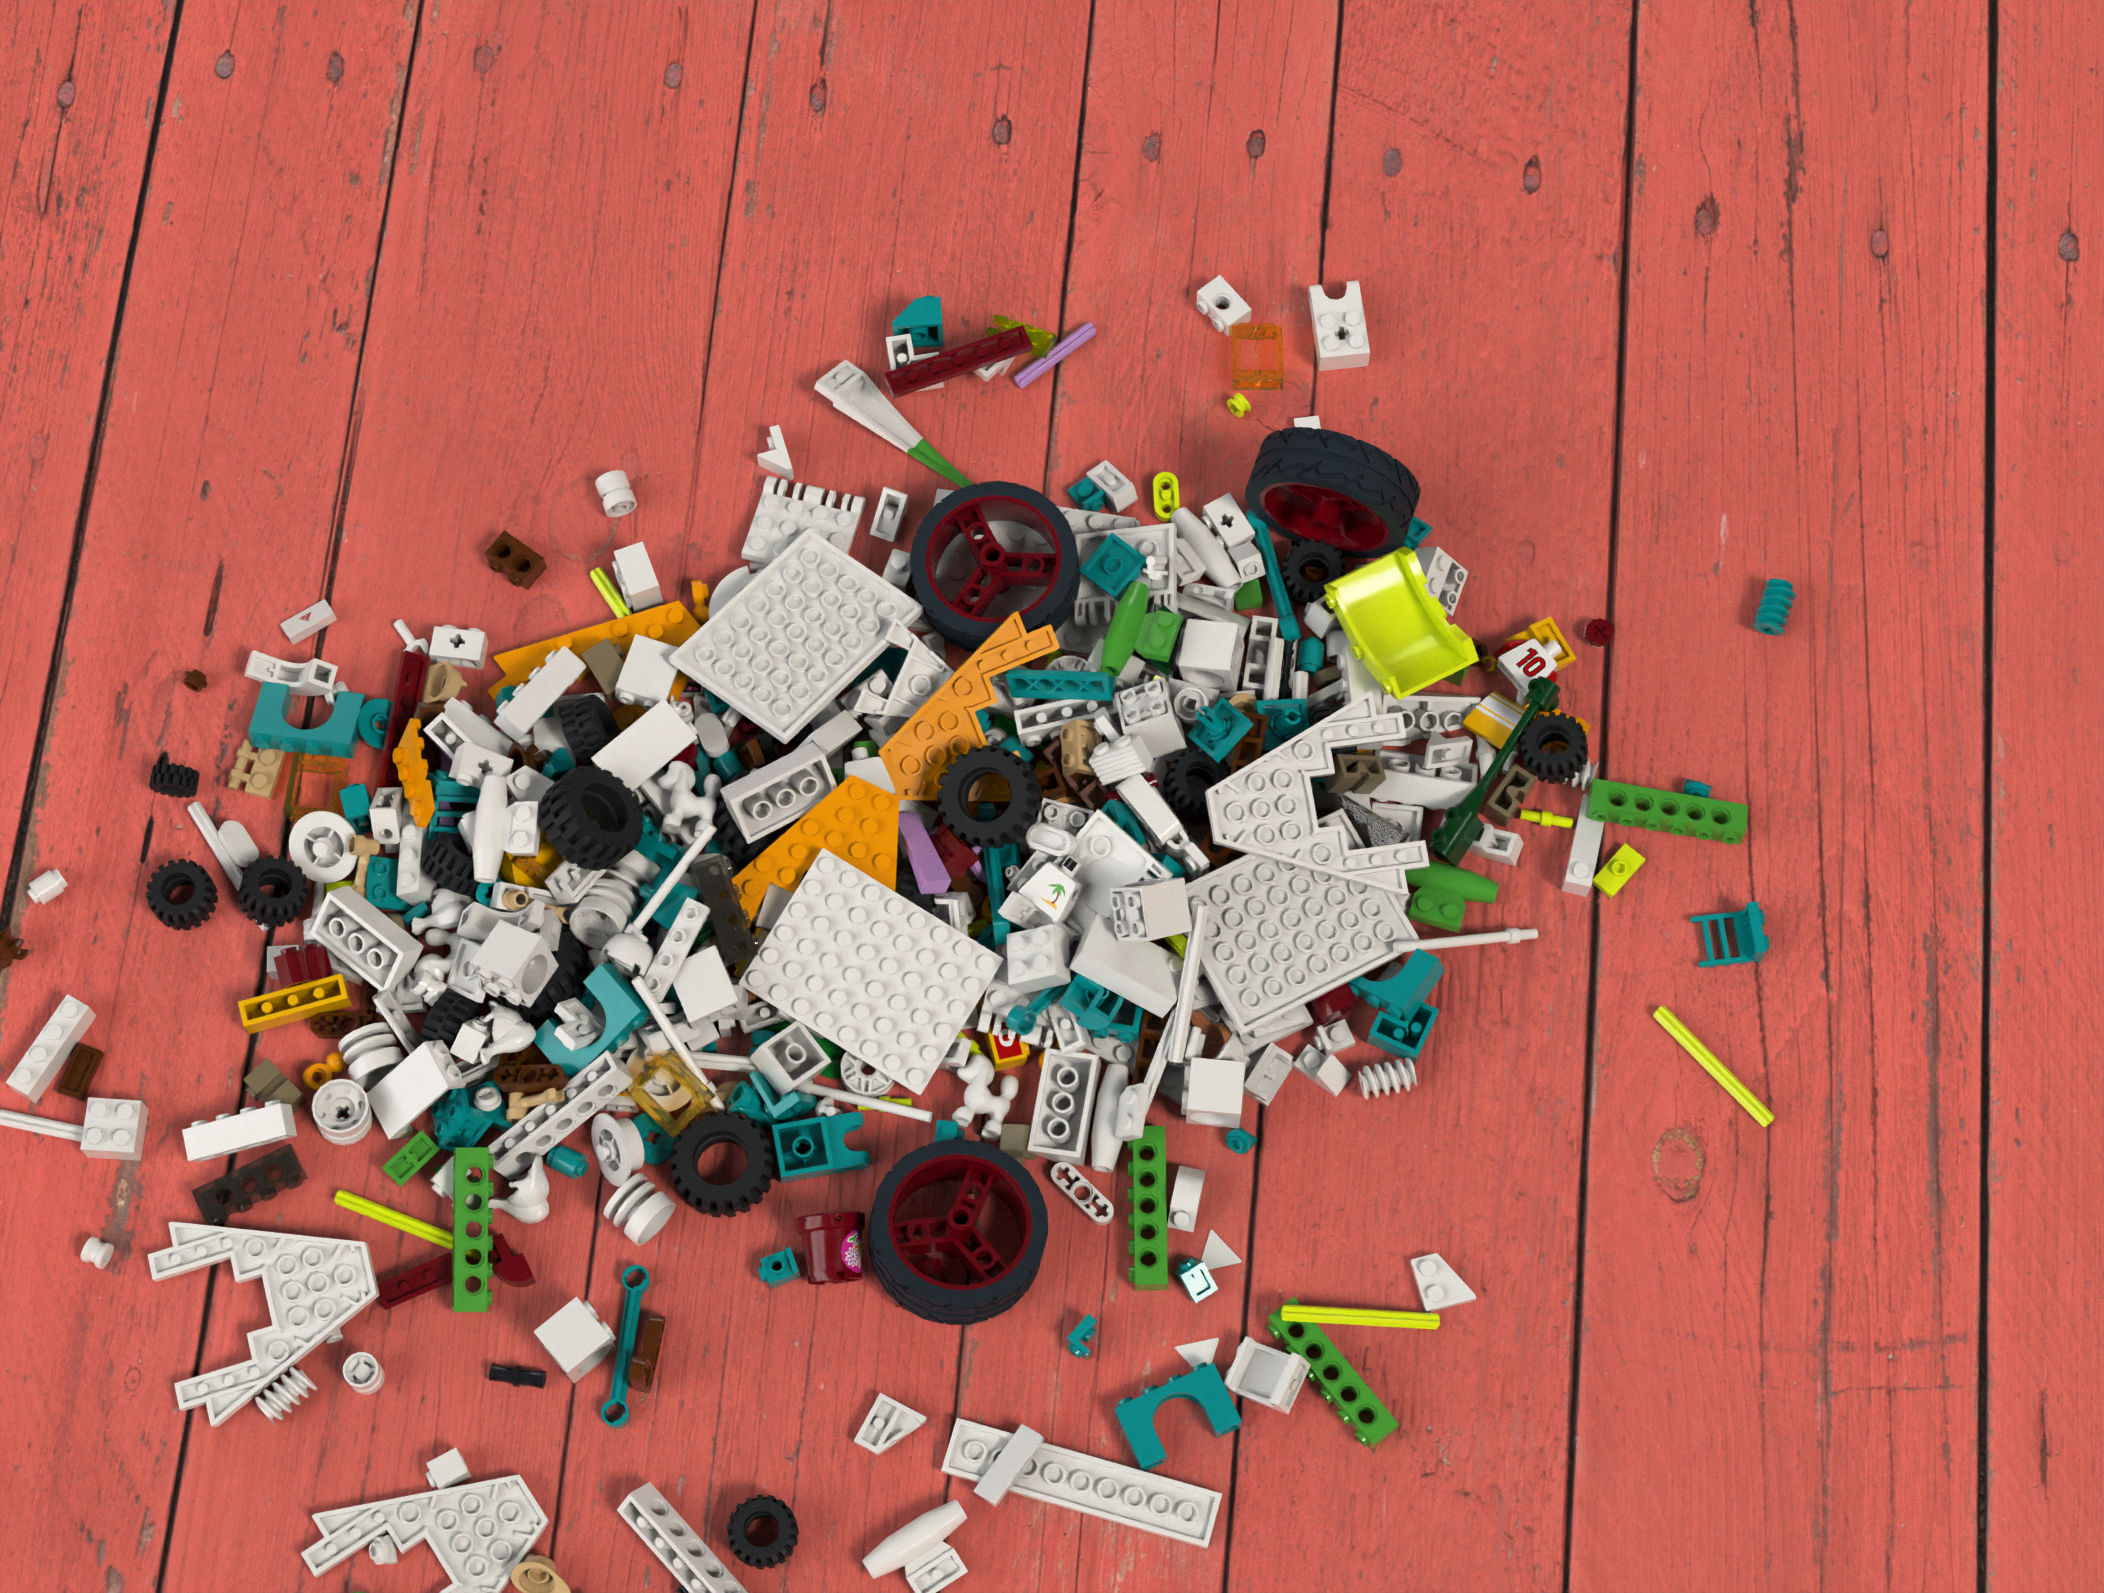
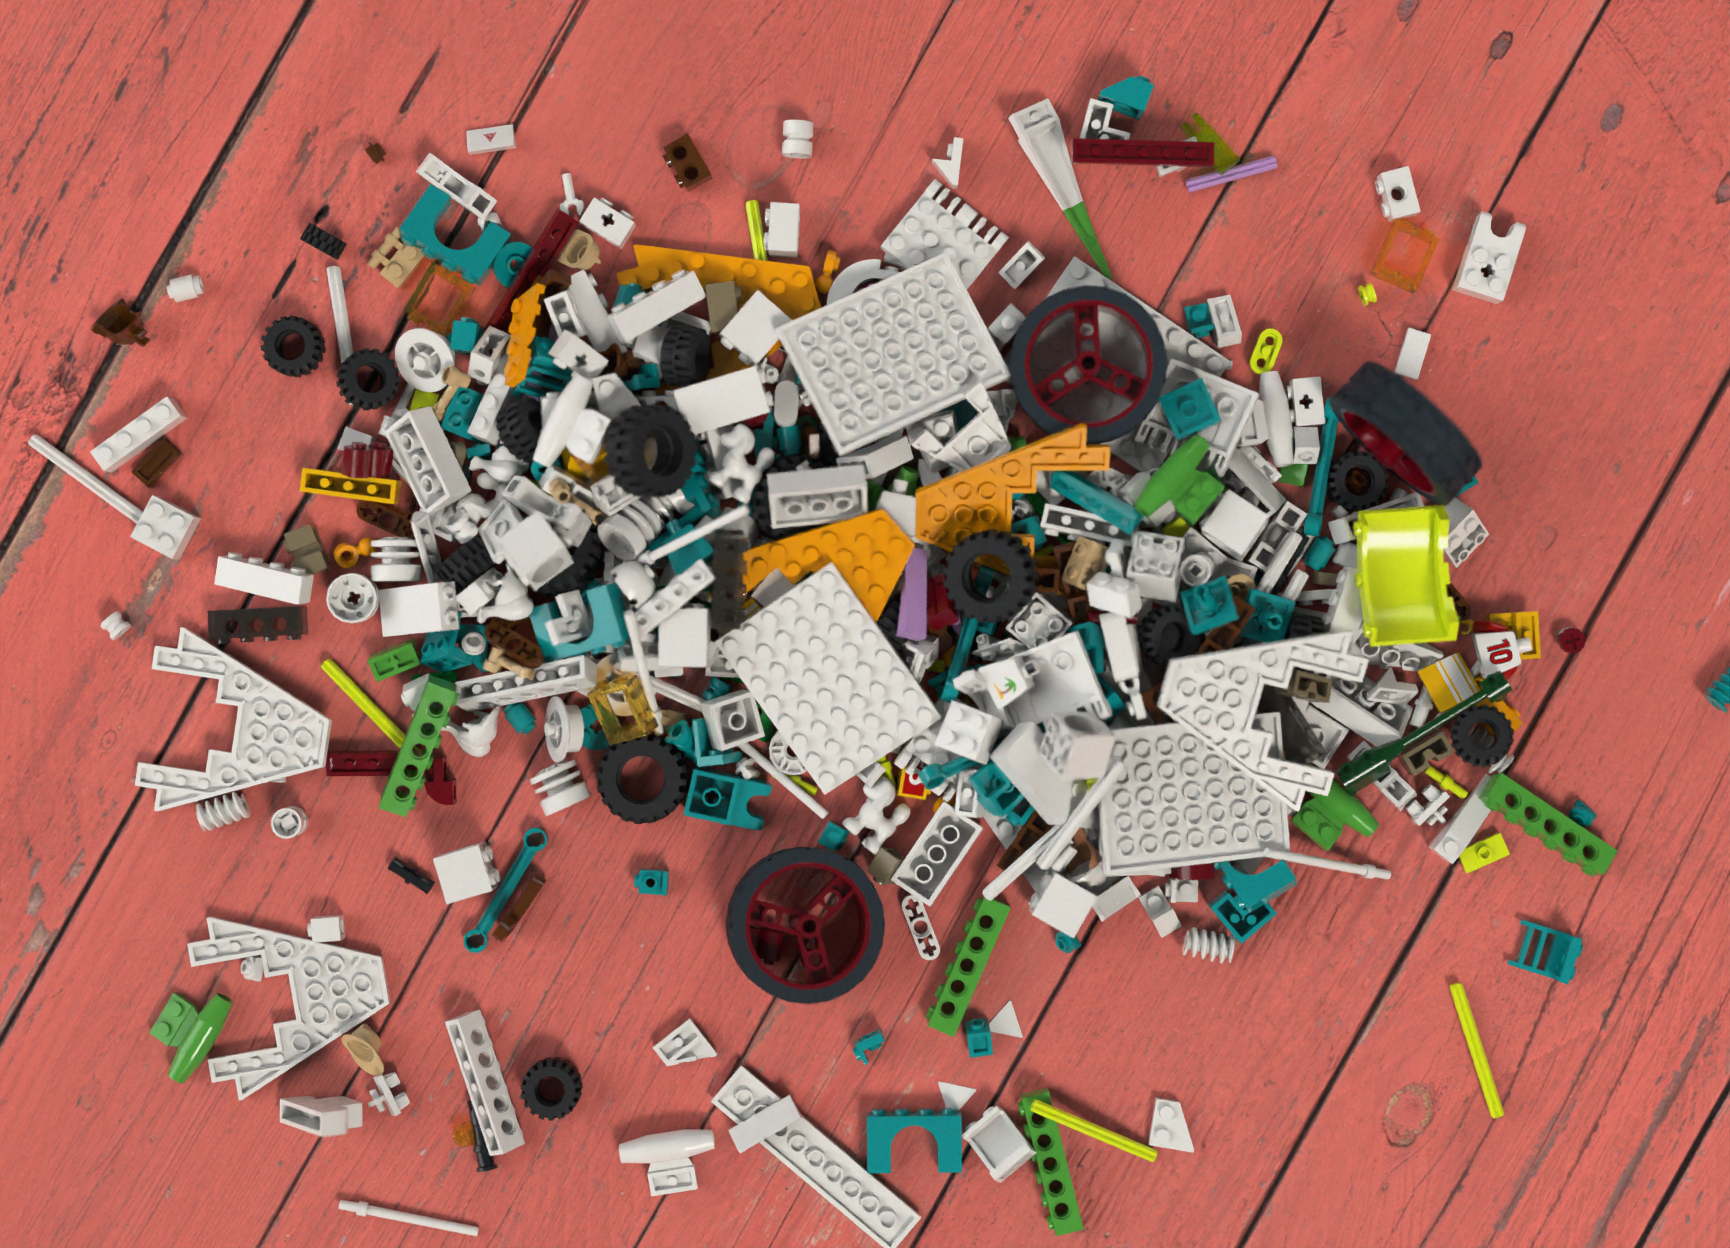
camera: 25 degrees right, 20 degrees up
(238, 843) = (357, 319): white tile -> none
(832, 1246) = (701, 887): dark red piece -> none
(1051, 840) = (1025, 635): white tile -> none
(1117, 1116) = (976, 882): white plate -> none
(1155, 567) = (1222, 430): white plate -> none
(1186, 1198) = (1002, 970): white brick -> none
(1534, 857) = (1435, 800): none -> white hips

